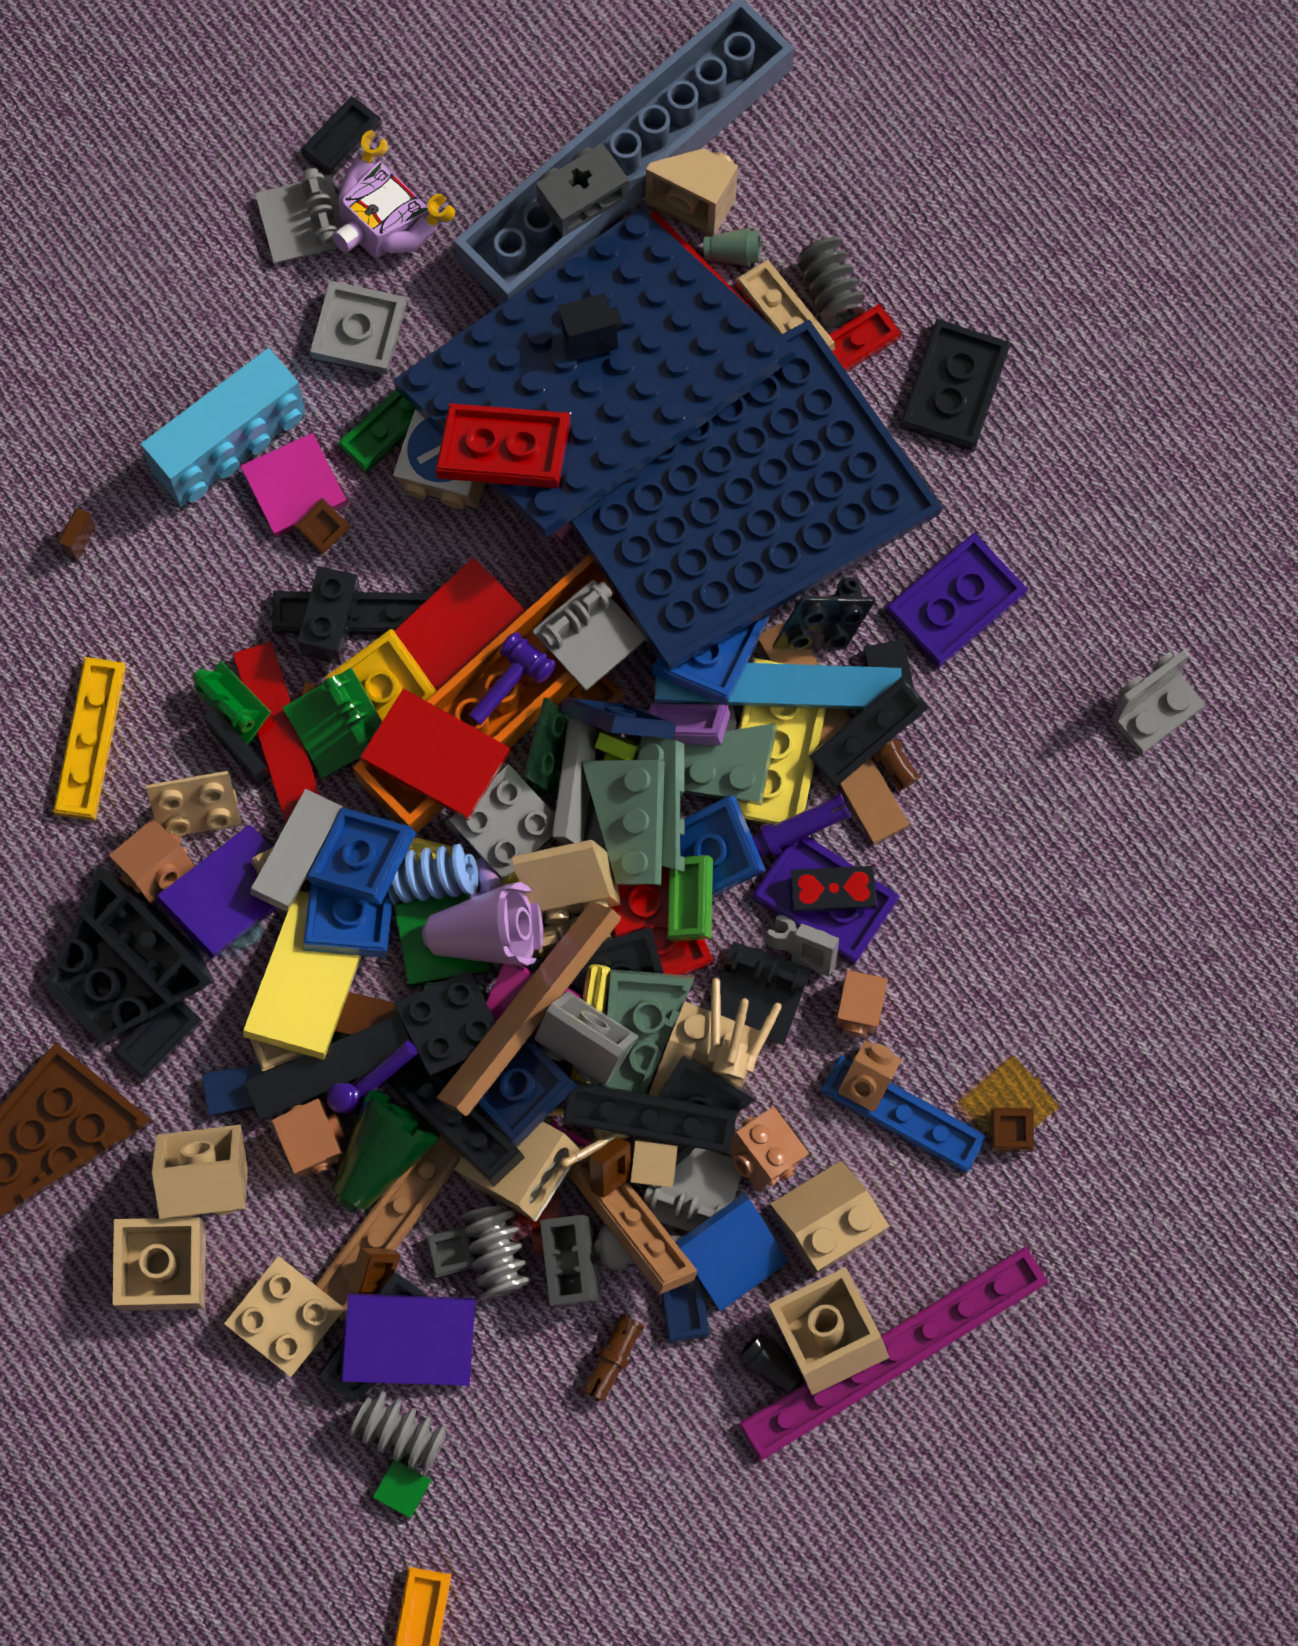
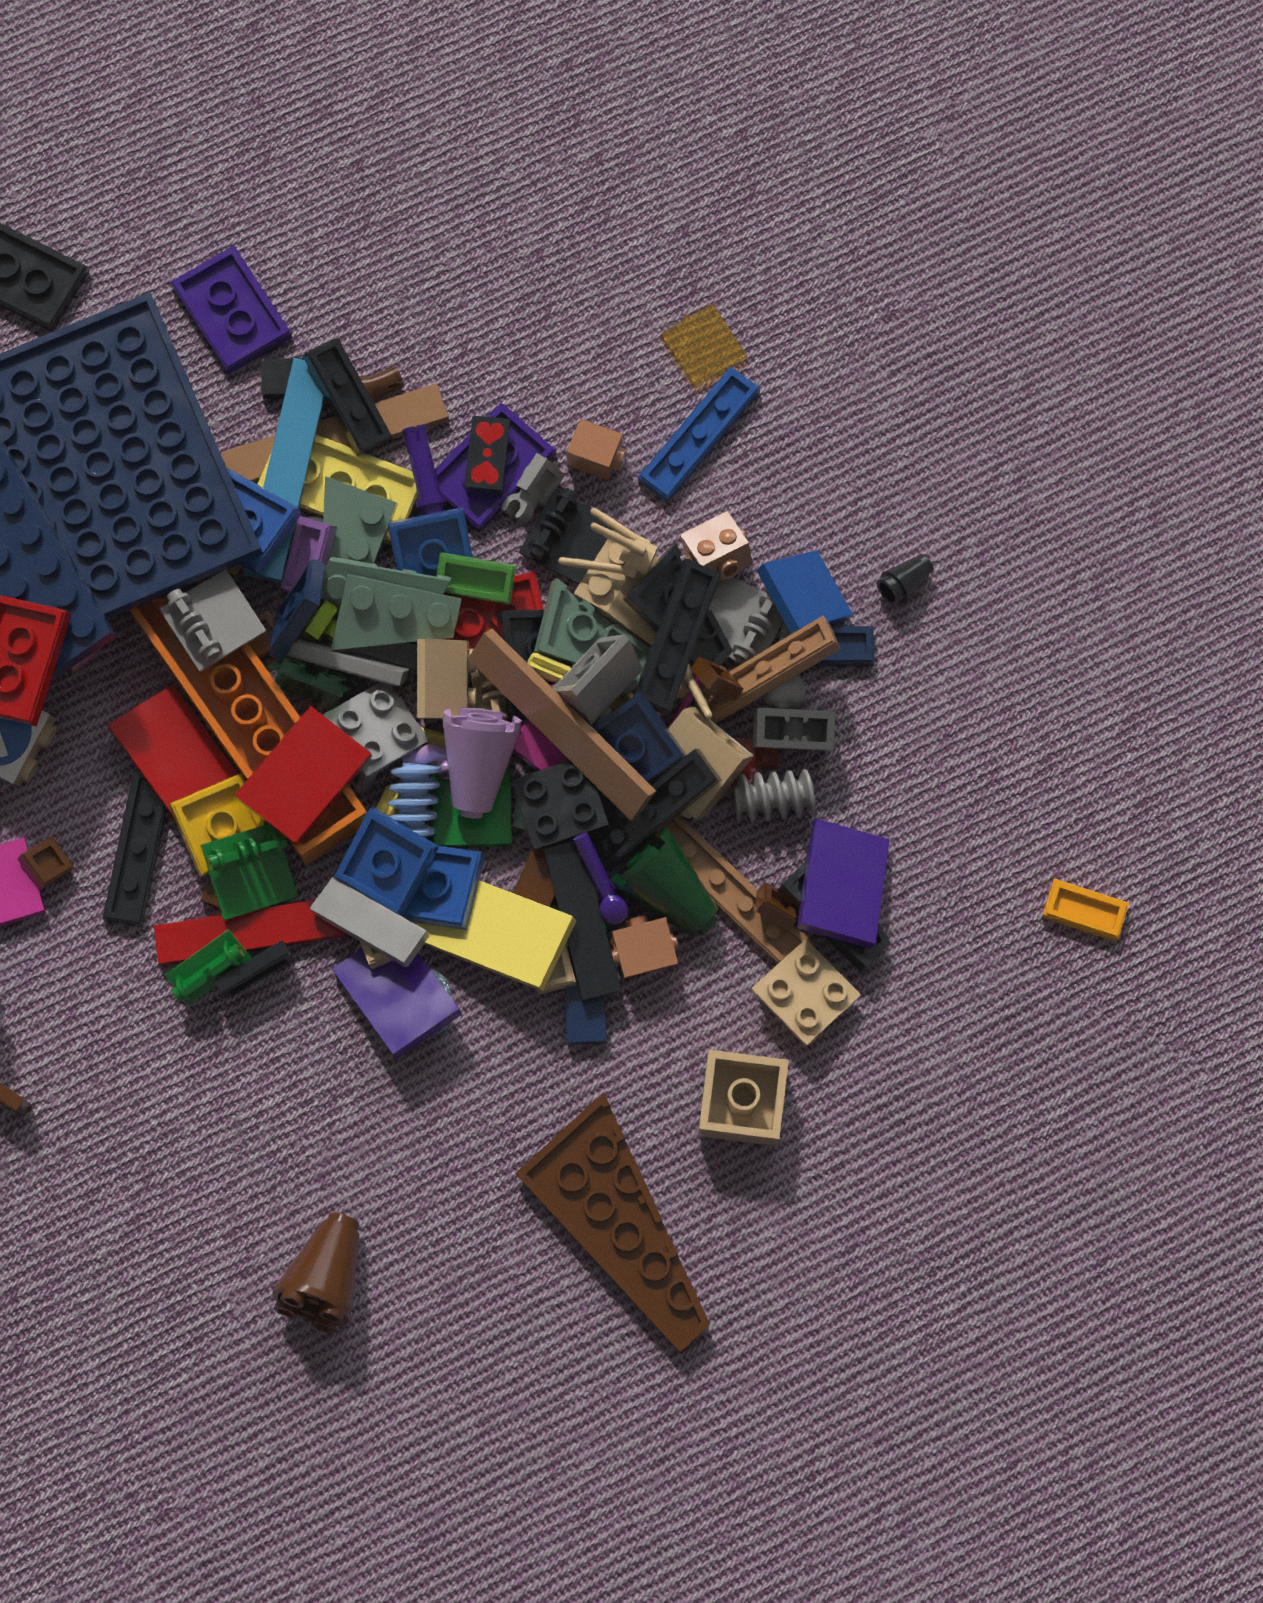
camera: 80 degrees left, 0 degrees up
(89, 739) = (217, 1112): yellow tile -> none
(123, 961) = (450, 1099): black wedge -> none
(151, 860) = (354, 1060): nougat head -> none
(157, 1039) = (522, 1080): black tile -> none
(195, 804) = (307, 1014): tan hinge -> none
(200, 1172) = (664, 1046): tan brick -> none
(329, 615) = (142, 861): black brick -> none
(398, 1432) = (923, 901): light grey piece -> none
(402, 1489) = (972, 911): green tile -> none
(450, 1253) = (766, 841): dark grey tile -> none
(524, 659) = (227, 680): dark purple piece -> none
(612, 1358) = (881, 712): reddish brown pin -> none
(654, 1162) = (717, 643): tan tile -> none
(826, 620) = (234, 411): black hinge -> none
(829, 1217) = (784, 507): tan slope -> none
(829, 1330) = (887, 519): tan brick -> none
(869, 1075) = (663, 450): medium nougat bracket -> none
(906, 1346) = (909, 478): magenta tile -> none
(1011, 1130) = (728, 344): reddish brown tile -> none
(1156, 705) = (365, 154): light grey bracket -> none

